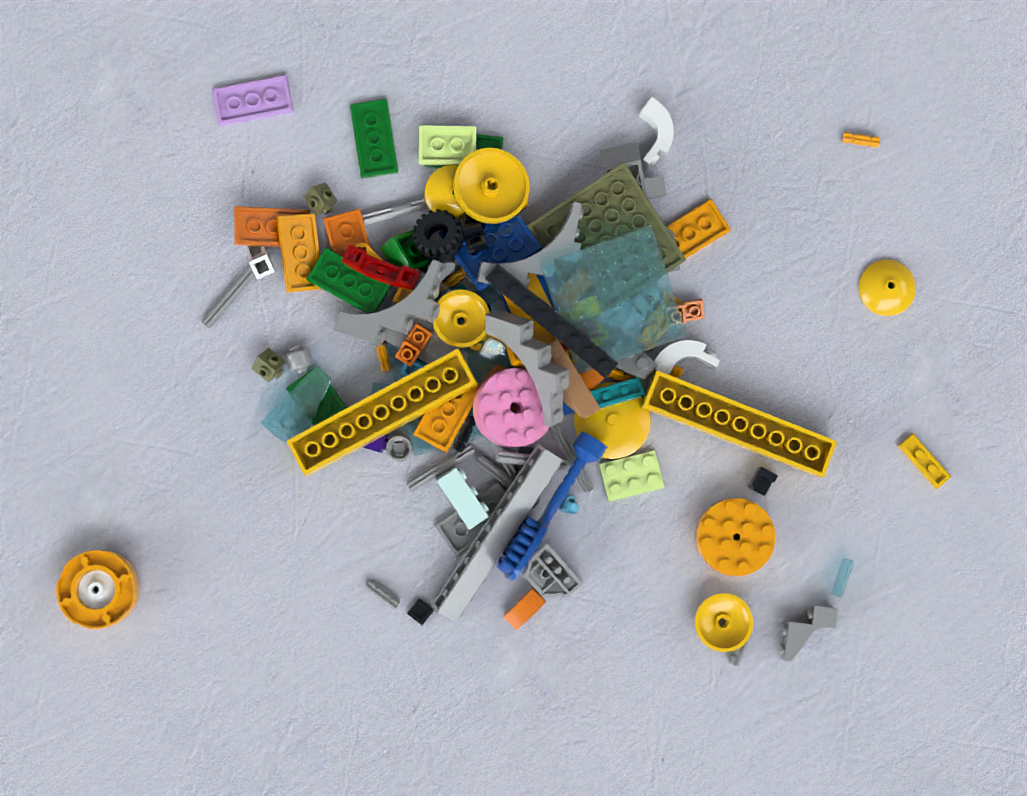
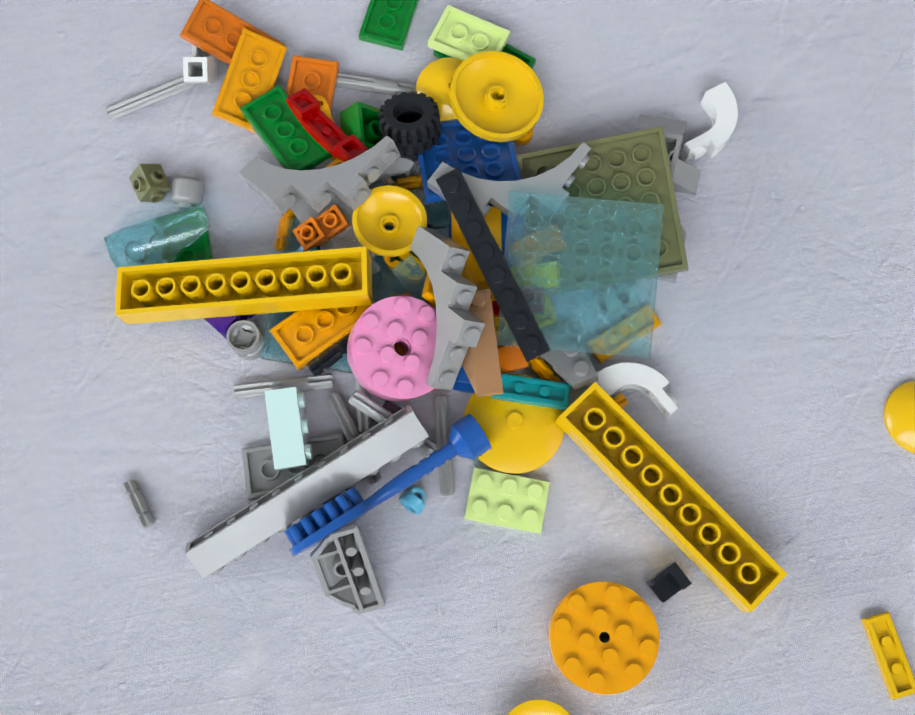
camera: 30 degrees right, 10 degrees down
(320, 199) = (301, 35): olive brick -> none
(420, 611) = (171, 546): black tile -> none
(473, 234) = (451, 139): black slope -> none
(524, 608) = (297, 603): orange slope -> none
(691, 310) = (668, 337): orange slope -> none
(699, 228) = (717, 251): light orange tile -> none

